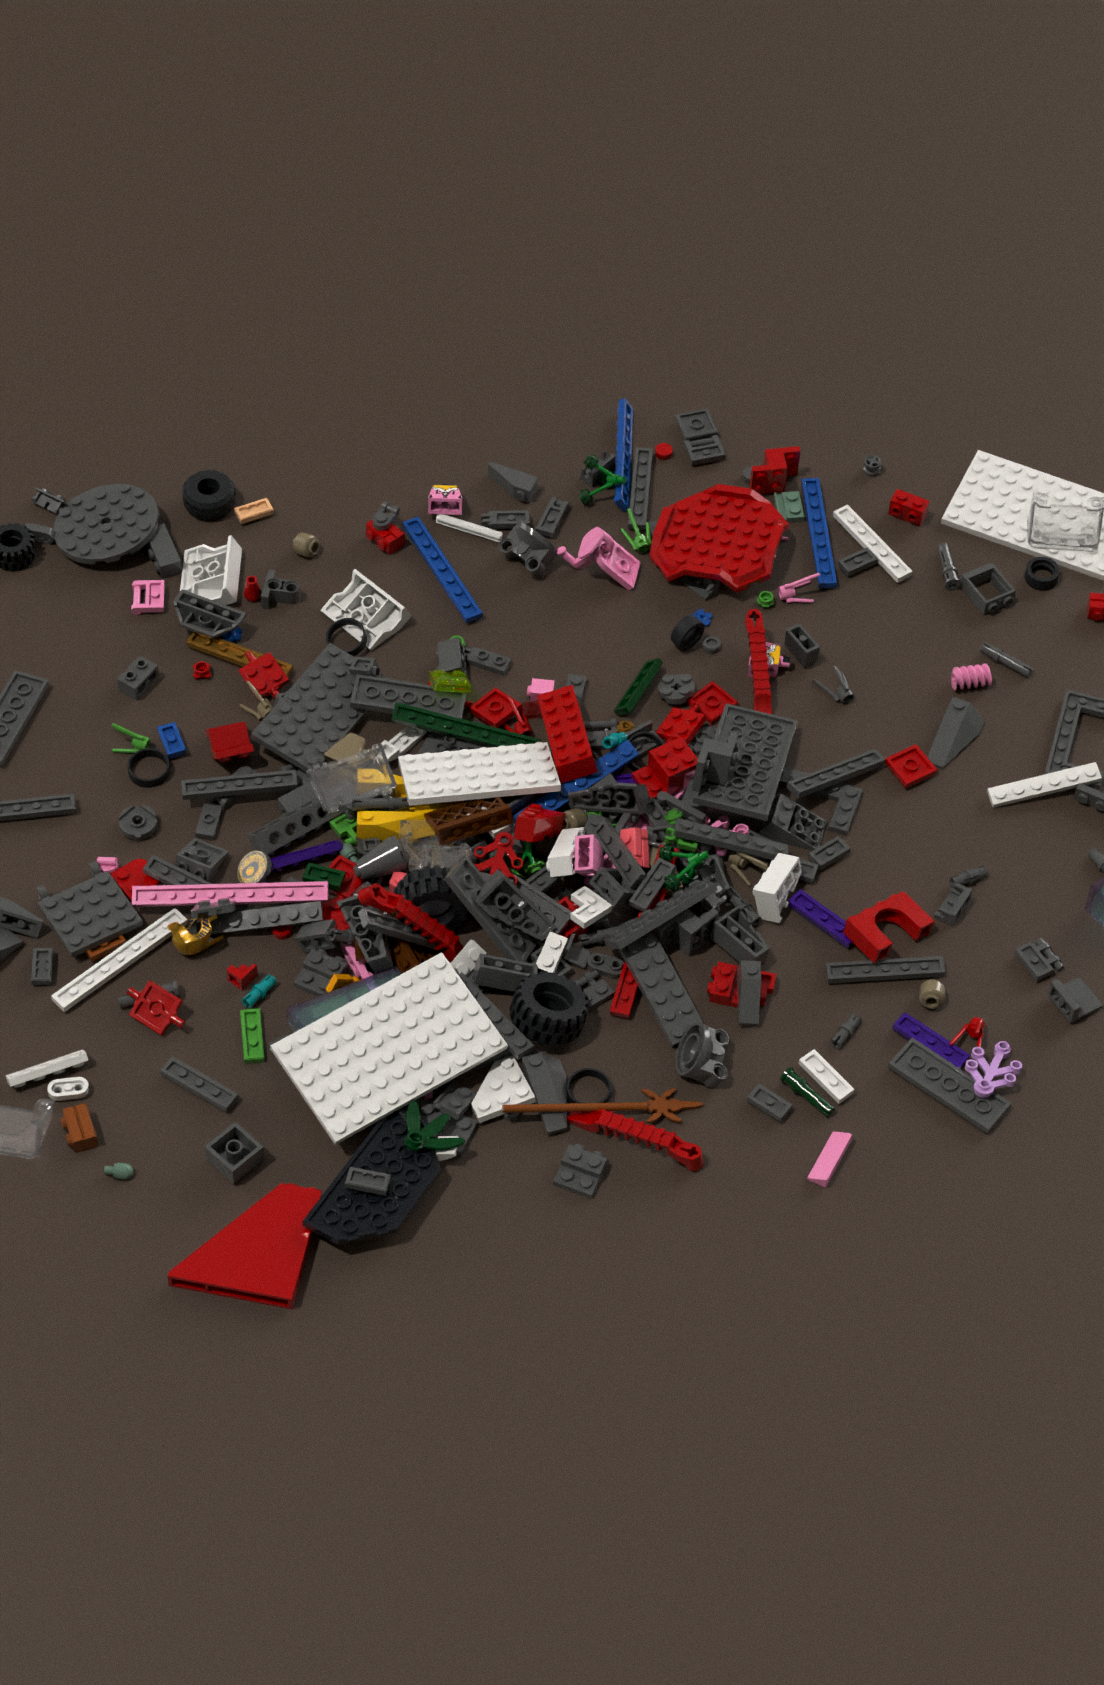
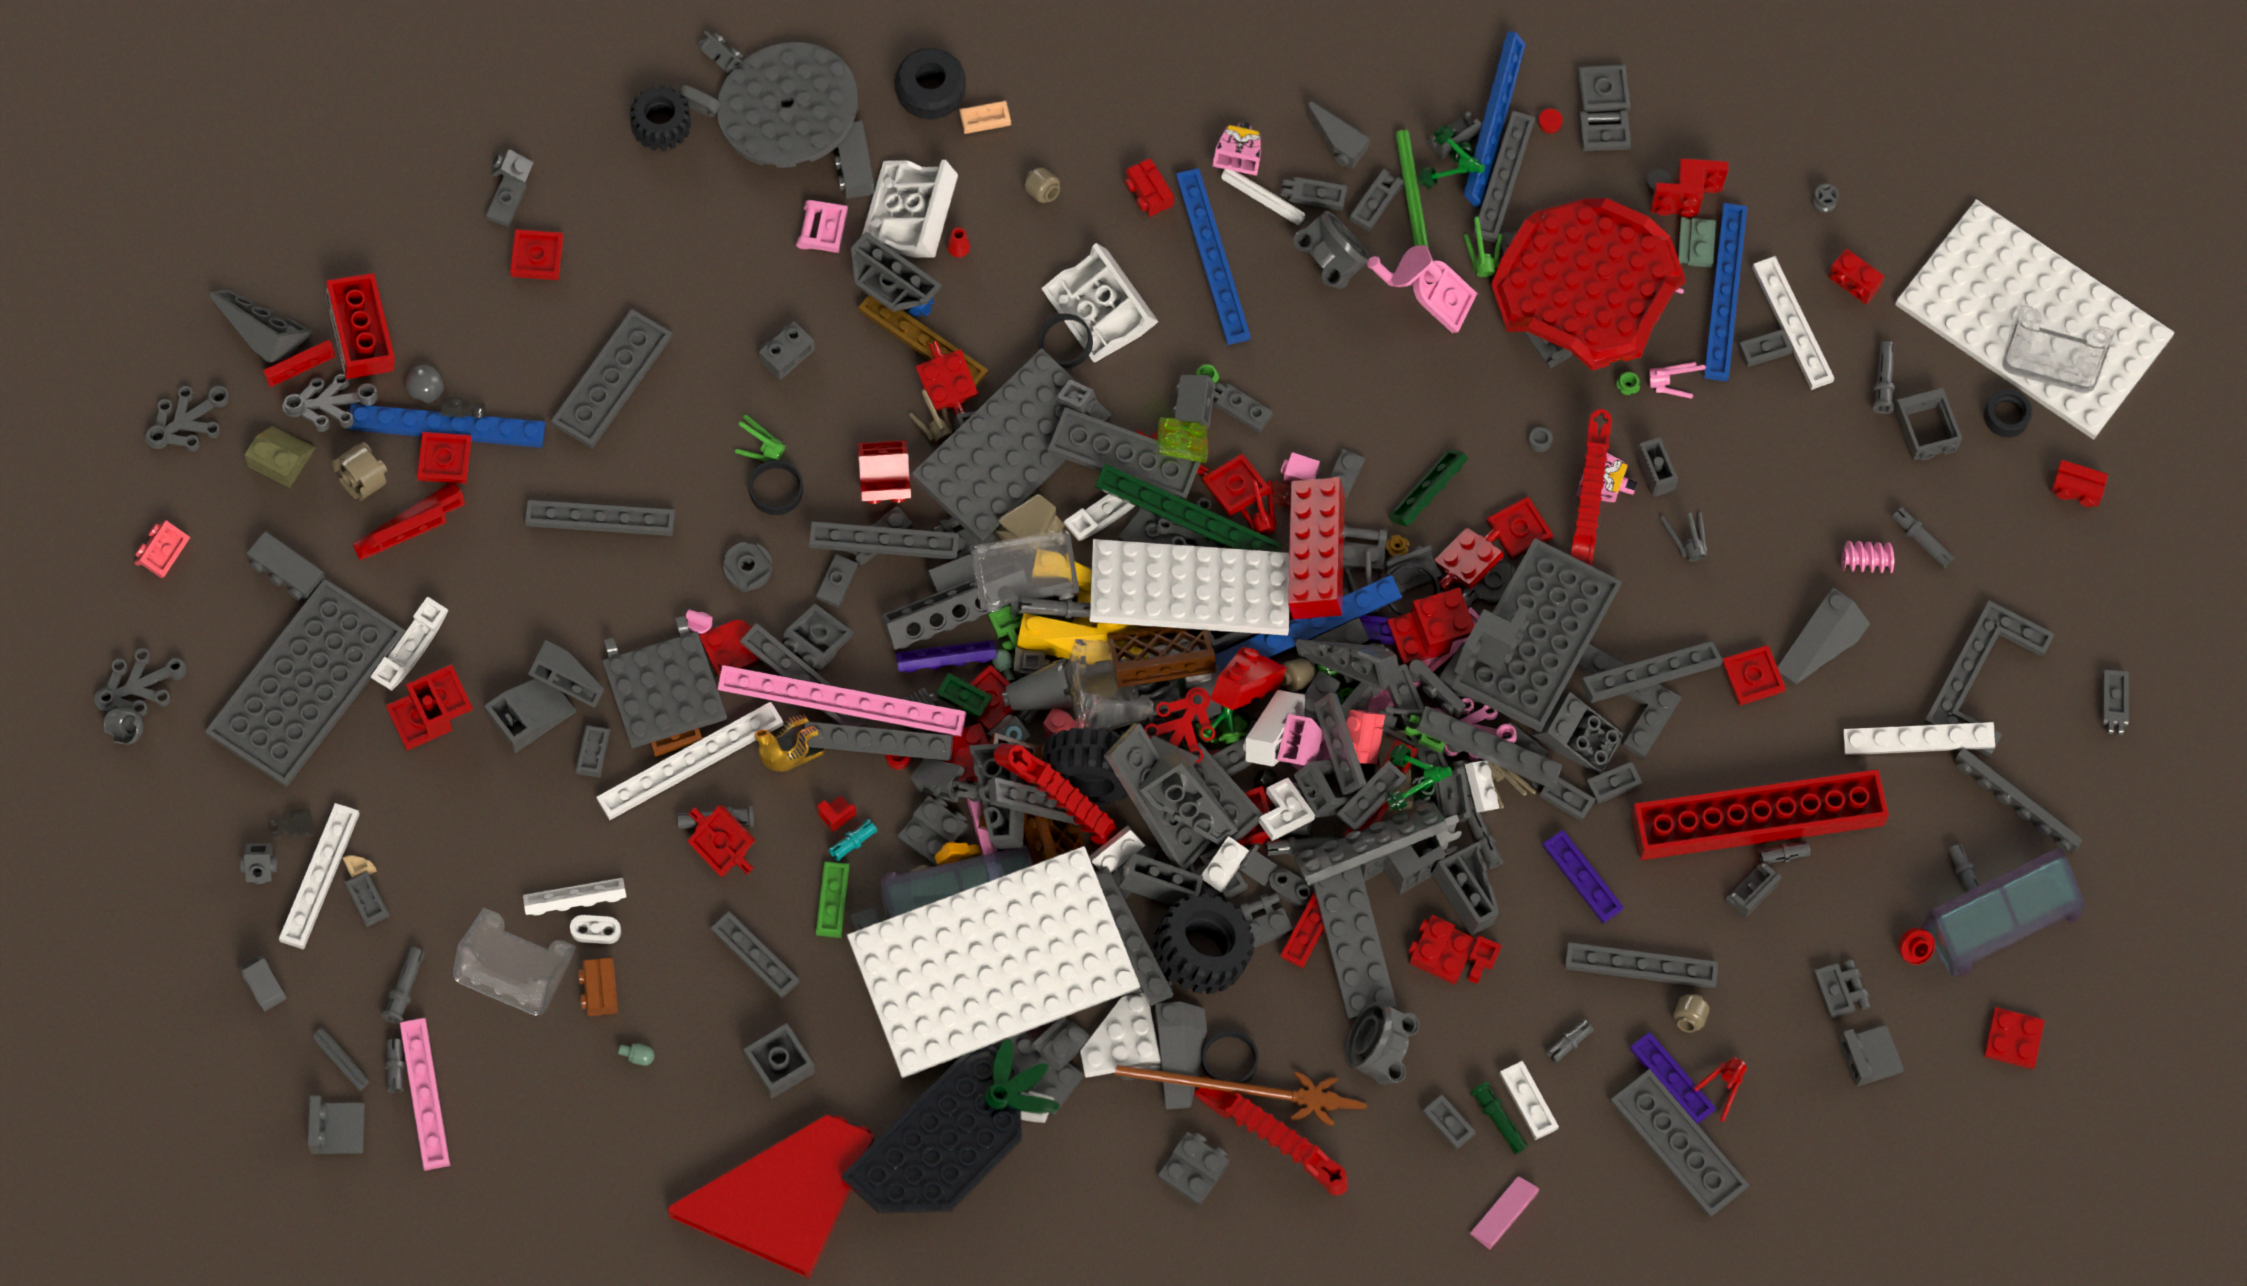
camera: 10 degrees right, 15 degrees up
(171, 740) = (812, 453): blue plate -> none
(201, 670) = (875, 348): red plate -> none
(205, 907) = (815, 719): dark grey wing -> none
(254, 867) = (879, 666): tile -> none
(279, 590) = (995, 255): dark grey tile -> none
(367, 1181) = (929, 1139): dark grey plate -> none
(381, 520) = (1149, 172): dark grey plate -> none
(573, 502) = (1411, 188): none -> bright green axle
(614, 740) = (1375, 571): teal pin -> none
(672, 815) = (1423, 698): bright green plate -> none
(685, 687) = (1473, 488): dark grey plate -> none
(687, 632) = (1510, 420): black tyre -> none
(703, 617) = (1536, 395): blue plant -> none
(732, 871) = (1482, 786): none -> white plate
(748, 992) = (1458, 969): dark grey slope -> none
(775, 886) = (1530, 822): white wedge -> none
(897, 909) = (1679, 884): red arch -> none
(942, 853) = (1759, 814): none -> red brick
(985, 1087) = (1737, 1137): lavender plant -> none
(1085, 919) = (1916, 946): none -> red plate

